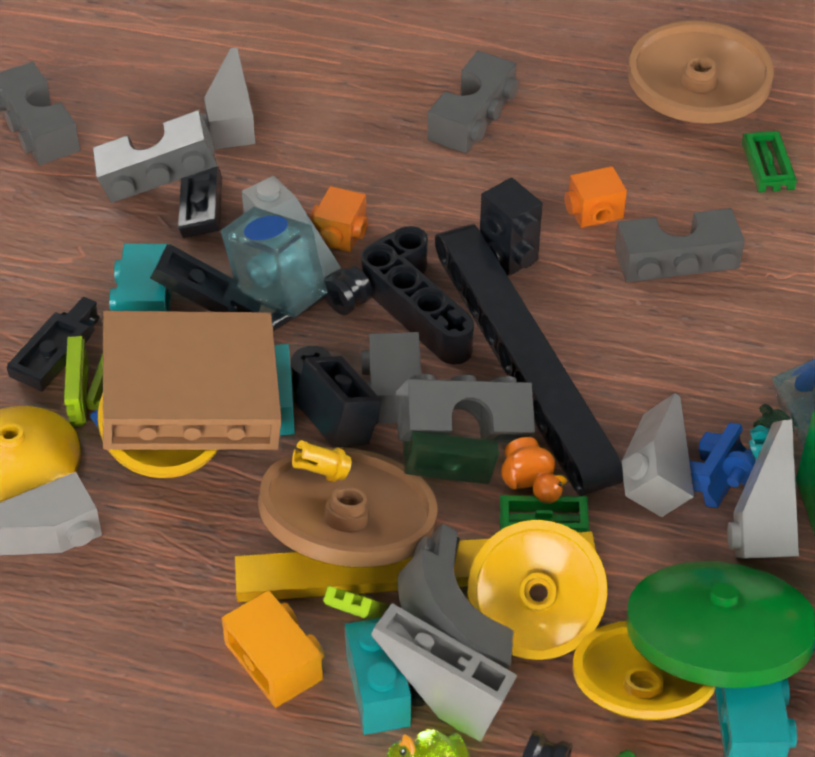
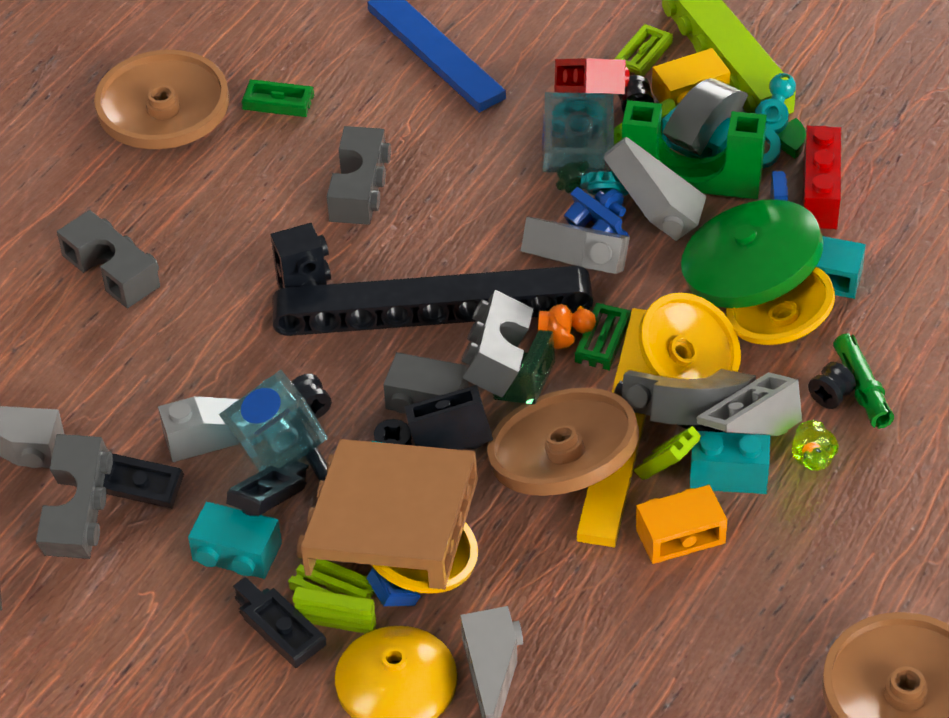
camera: 70 degrees left, 0 degrees up
(320, 460) = (515, 443): yellow pin -> none
(341, 218) = (216, 378): orange brick -> none
(398, 282) = (341, 353): black beam -> none
(596, 197) = (274, 207): orange brick -> none

